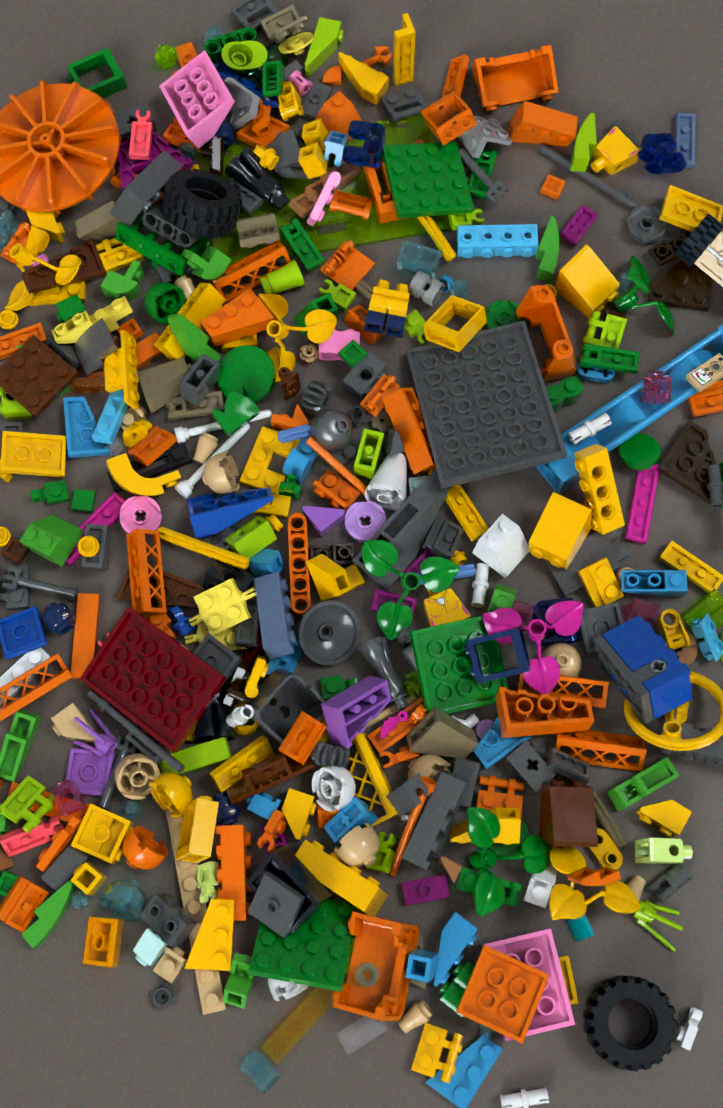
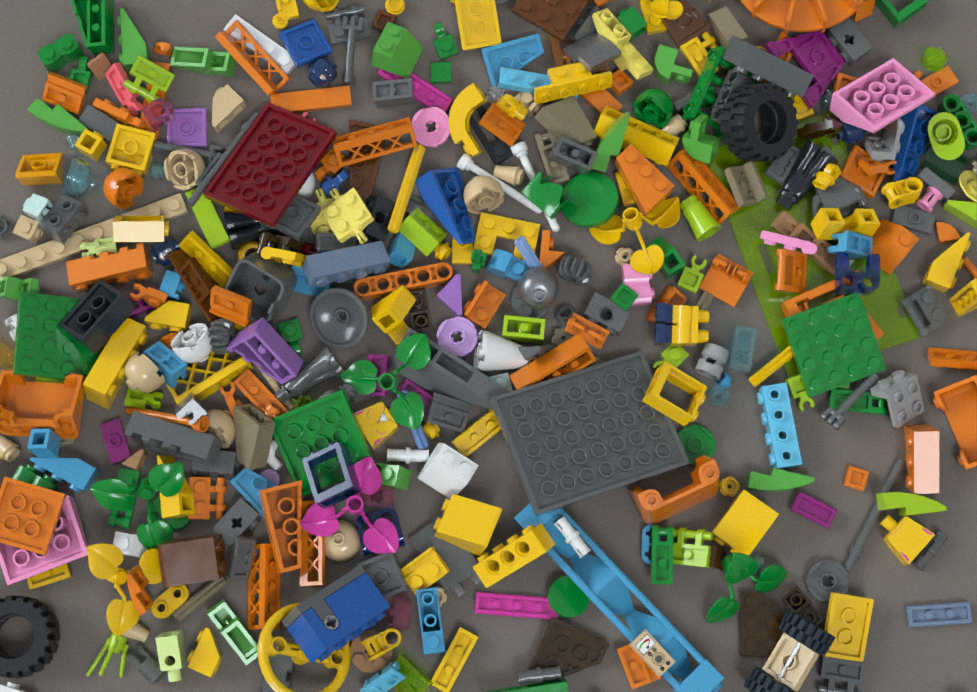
camera: 80 degrees right, 5 degrees up
(88, 546) = (389, 84): yellow plate -> none
(104, 743) = (210, 135): medium lavender plant -> none
(141, 137) = (828, 51): coral plate -> none
(172, 793) = (172, 202): yellow cylinder -> none
(215, 938) = (51, 261): yellow wing -> none
(240, 715) = (245, 252): white pin -> none
(272, 68) = (927, 163): green slope -> none
(276, 904) = (80, 306): dark grey plate -> none
(289, 383) = (584, 240): reddish brown hinge -> none
(302, 245) = (739, 230): green plate -> none
(336, 464) = (506, 299): orange bar -> none
(367, 982) = (28, 394): clear light blue plate -> none
(390, 724) = (261, 388): dark pink piece -> none
(451, 105) = (911, 341): orange window -> none
(565, 393) = (619, 515): green brick -> none
(580, 928) = (97, 586): teal slope -> none
(657, 388) = (629, 598): clear pink brick -> none
(660, 157) = (907, 586): clear blue piece -> none

